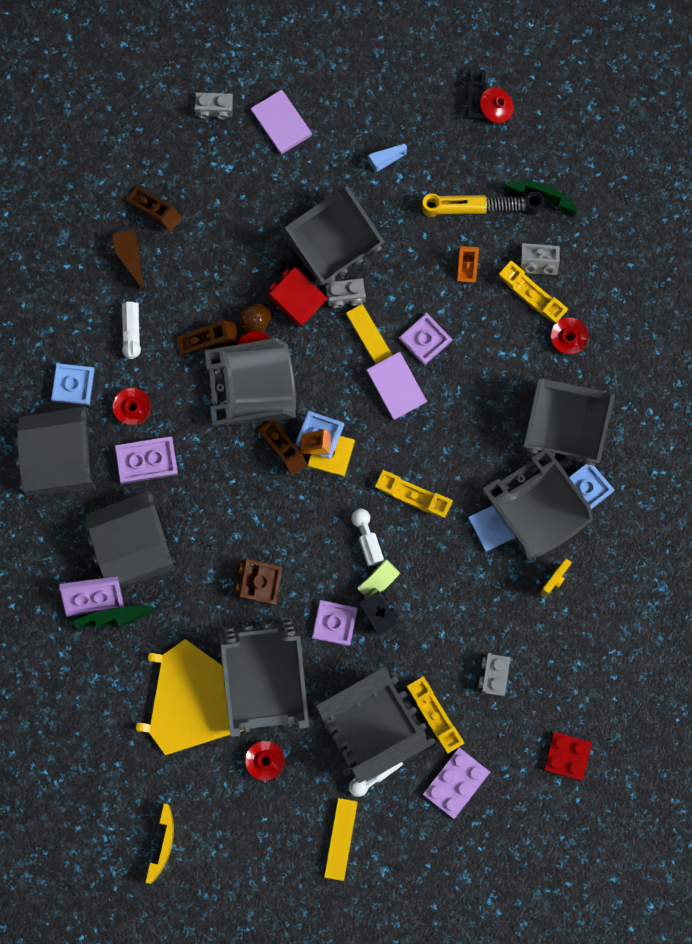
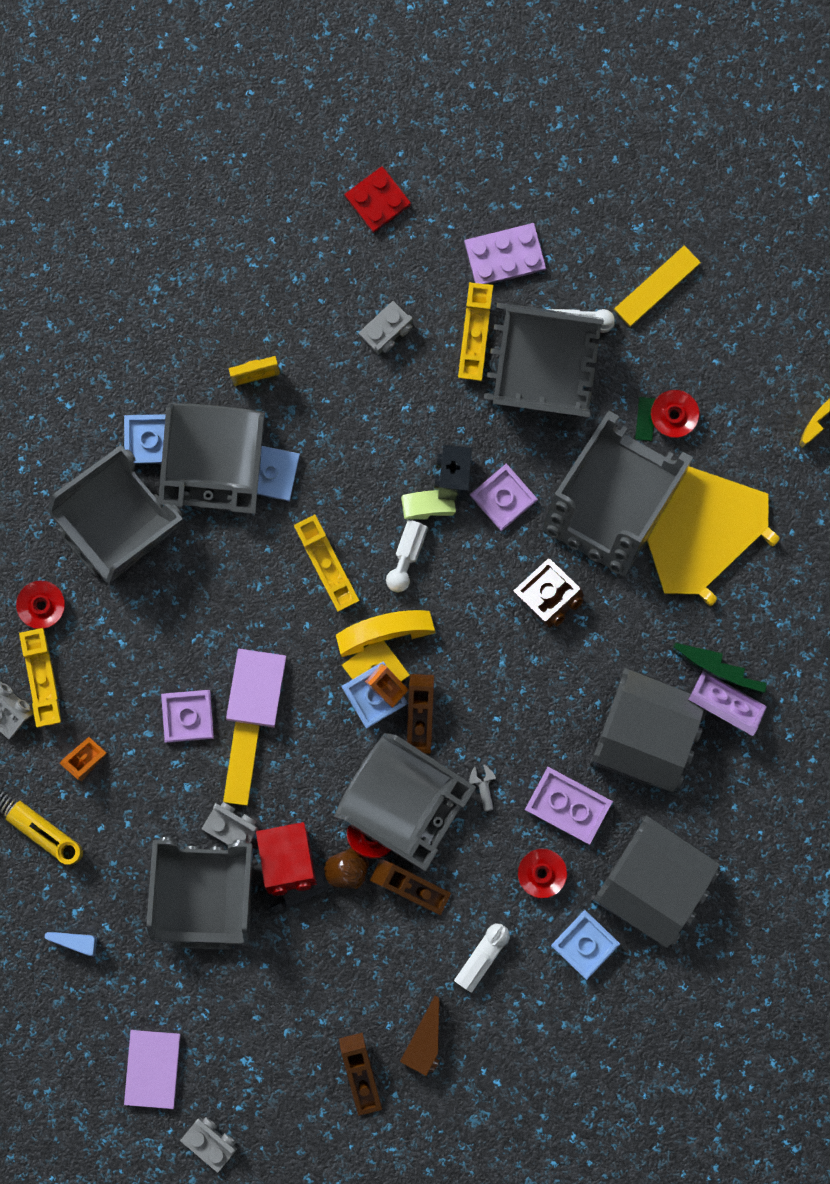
camera: 140 degrees left, 5 degrees up
(206, 431) = (484, 787): none -> light grey bar
(279, 739) = (644, 426): none -> dark green sticker
(344, 482) = (383, 628): none -> yellow slope

